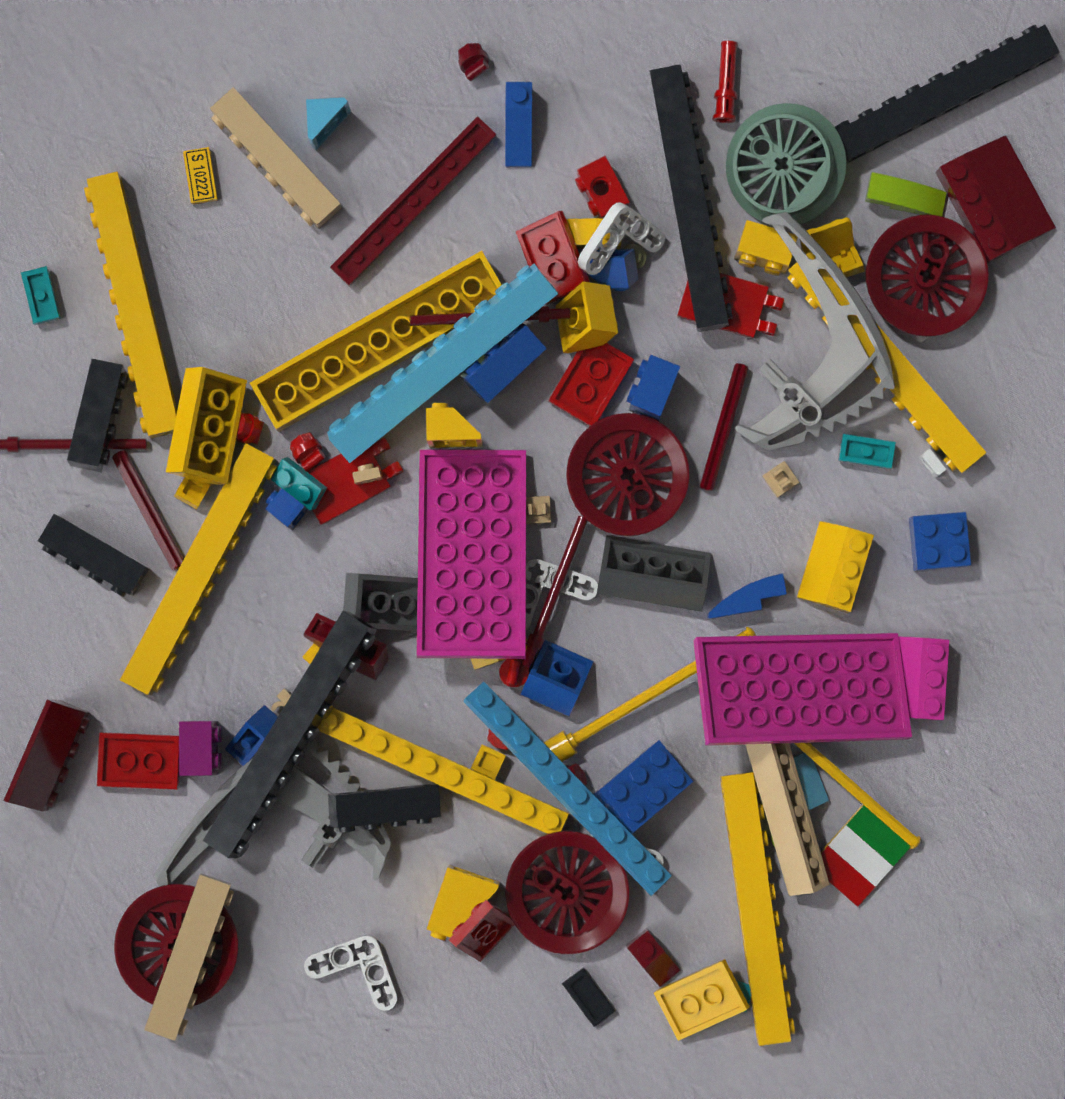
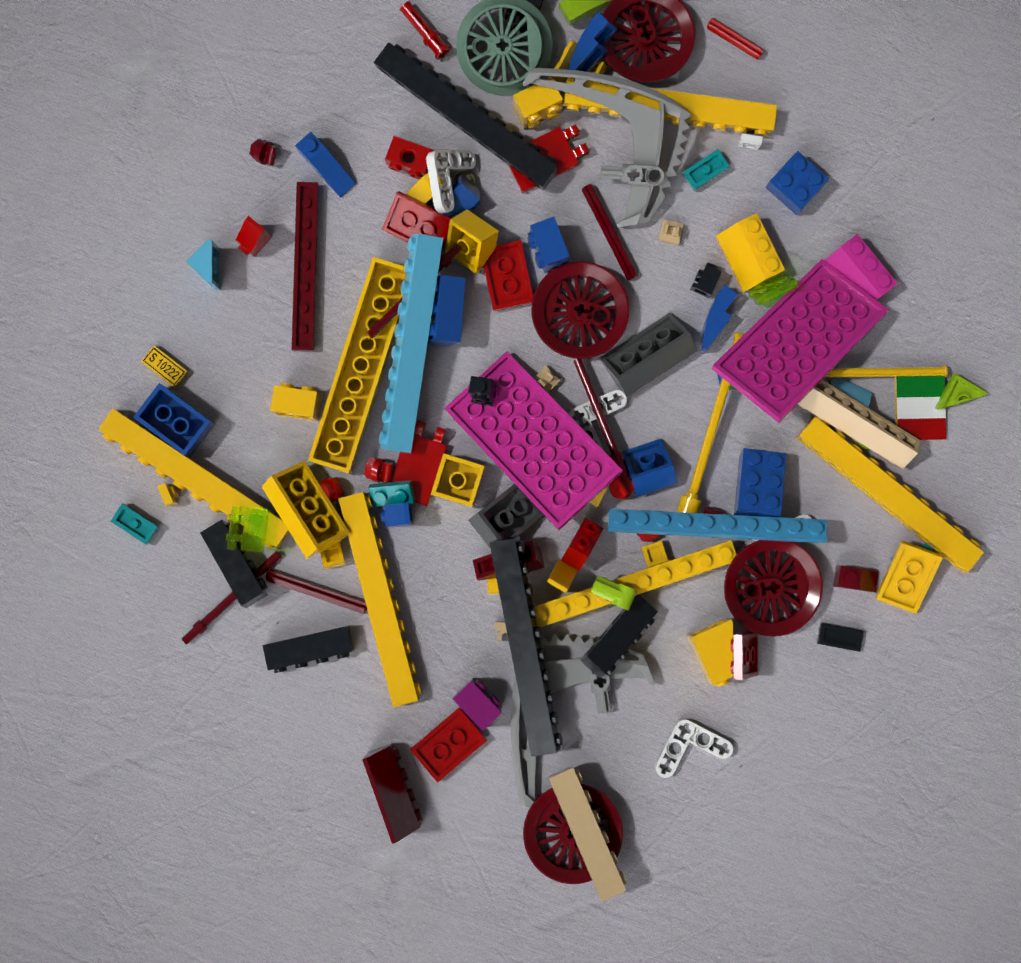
camera: 45 degrees left, 0 degrees up
(96, 296) = (168, 494): none -> yellow plate
(141, 402) = (254, 529): none -> clear neon green plate
(163, 234) = (174, 420): none -> blue brick
(251, 735) = (502, 667): blue slope -> none
(276, 158) = (199, 315): tan brick -> none
(287, 320) = (296, 403): none -> yellow brick
(366, 474) = (426, 450): tan plate -> none
(369, 528) = (457, 480): none -> yellow brick
(384, 702) = (561, 576): none -> yellow slope
(388, 130) = (252, 237): none -> red slope
(417, 766) = (616, 593): none -> lime piece
(428, 691) = (582, 544): none -> red brick
(449, 428) = (452, 377): yellow slope -> none
(467, 466) = (482, 391): none -> black brick
(771, 554) = (706, 280): none -> black brick
(823, 619) = (773, 289): none -> clear neon green plate
(864, 239) = (591, 44): none -> blue slope
(909, 873) = (958, 391): none -> lime tile
(1009, 354) = (735, 38): none -> red axle

